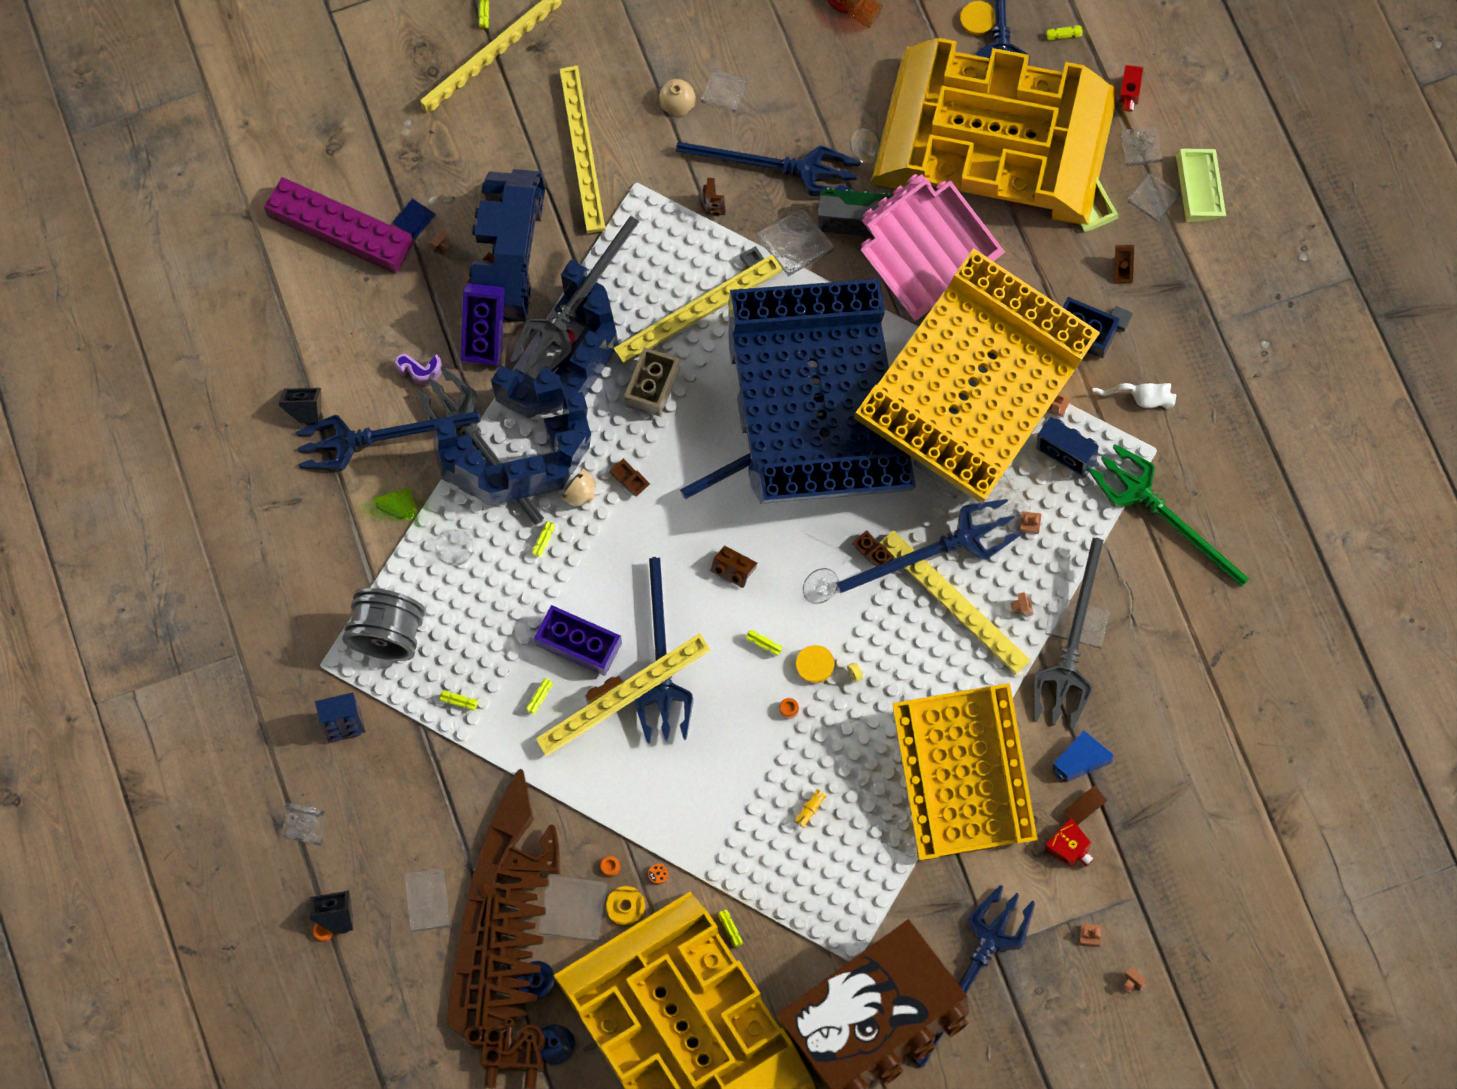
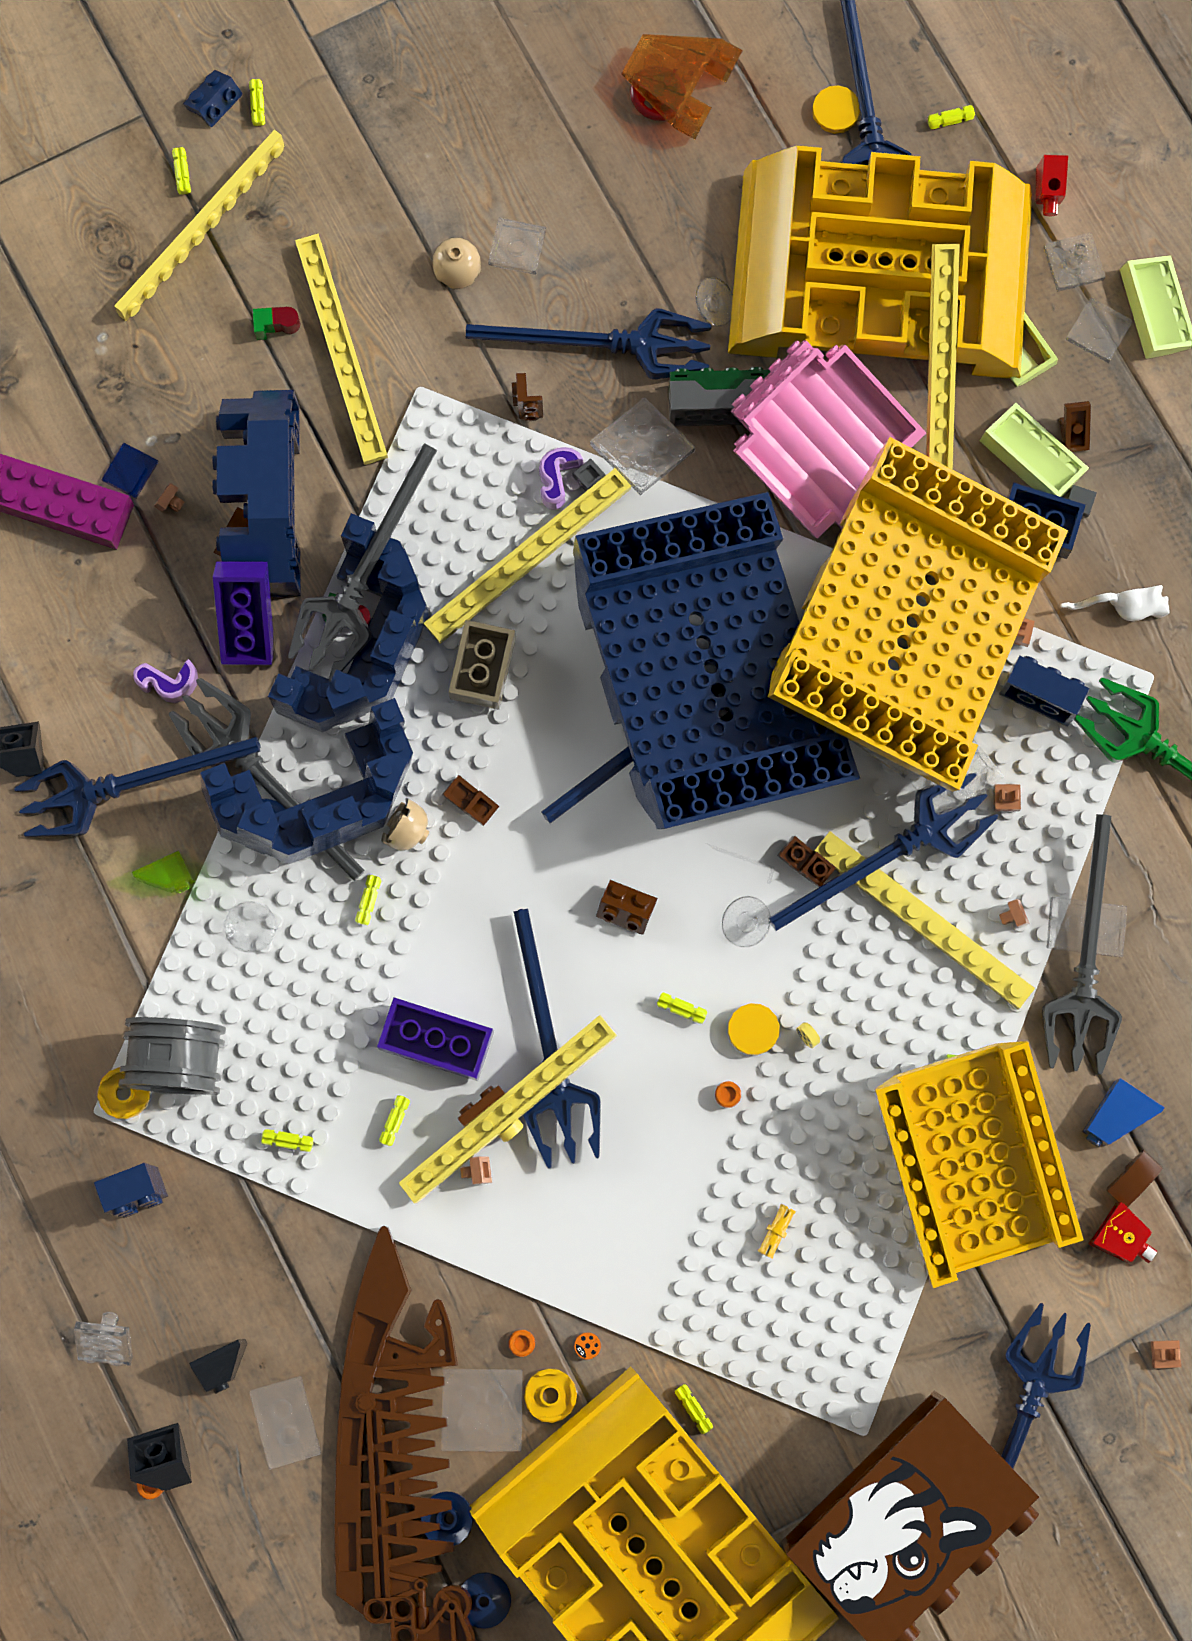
camera: 15 degrees left, 10 degrees up
(339, 663) = (113, 1105): none -> yellow tile
(386, 849) = (219, 1366): none -> black slope
(536, 124) = (275, 320): none -> leg
(595, 738) = (478, 1170): none -> nougat tile
(623, 712) = (511, 1131): none -> light yellow tile
(723, 251) = (549, 471): none -> lavender animal
(1024, 196) = (942, 353): none -> light yellow plate
(1089, 279) = (1033, 452): none -> yellowish green slope

